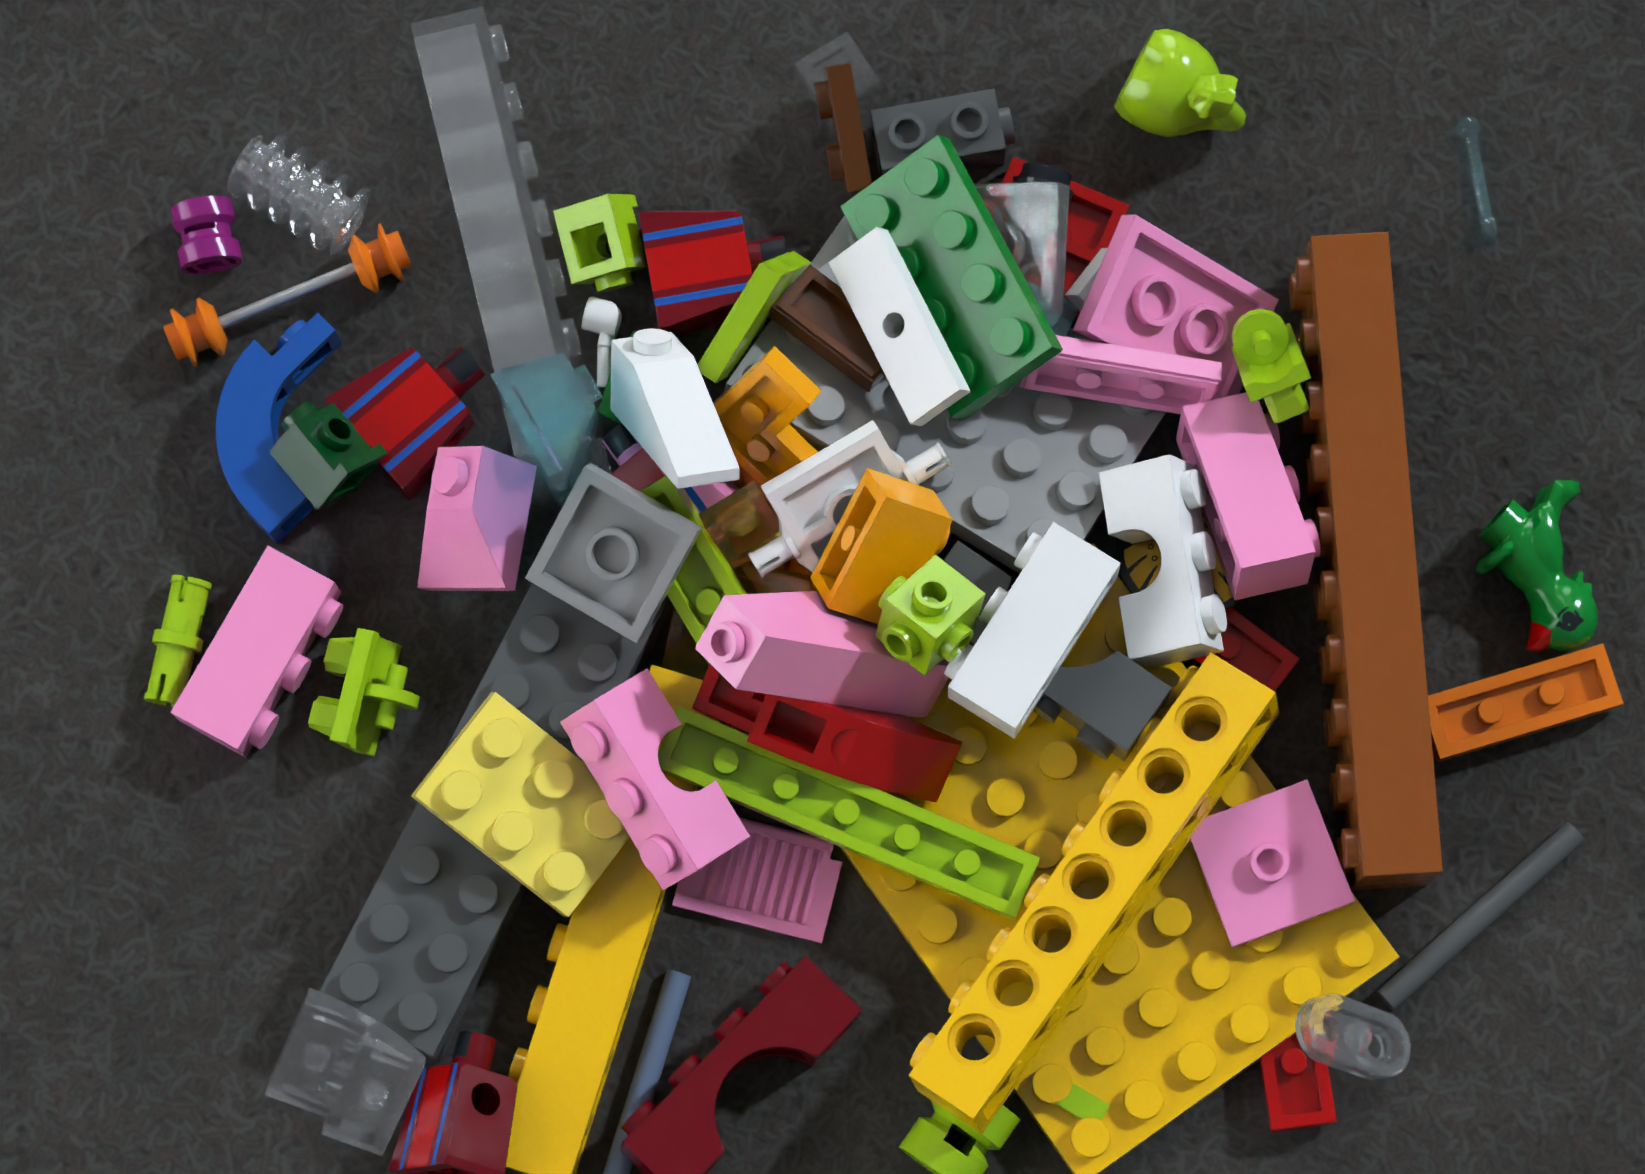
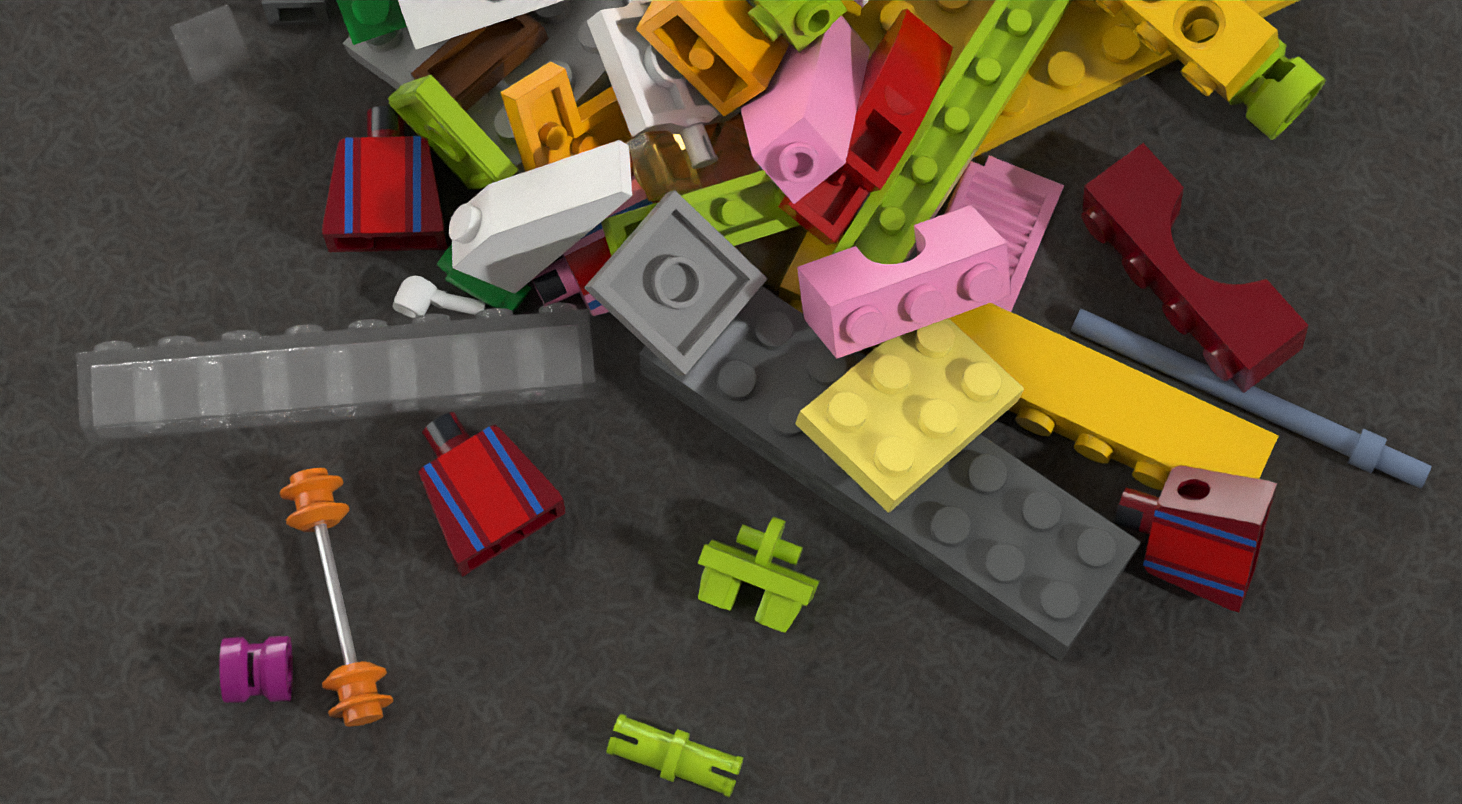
camera: 85 degrees left, 5 degrees down
(250, 423) = (474, 653): blue arch -> none
(259, 653) = (702, 670): bright pink brick -> none
(298, 194) = (232, 564): clear piece -> none
(324, 453) = (515, 566): dark green brick -> none
(347, 1071) = (1140, 634): clear slope -> none
(475, 520) = (608, 436): bright pink slope -> none
(552, 416) = (535, 329): clear light blue slope -> none
(584, 235) = (322, 298): lime brick -> none
(838, 100) = (257, 31): reddish brown plate -> none

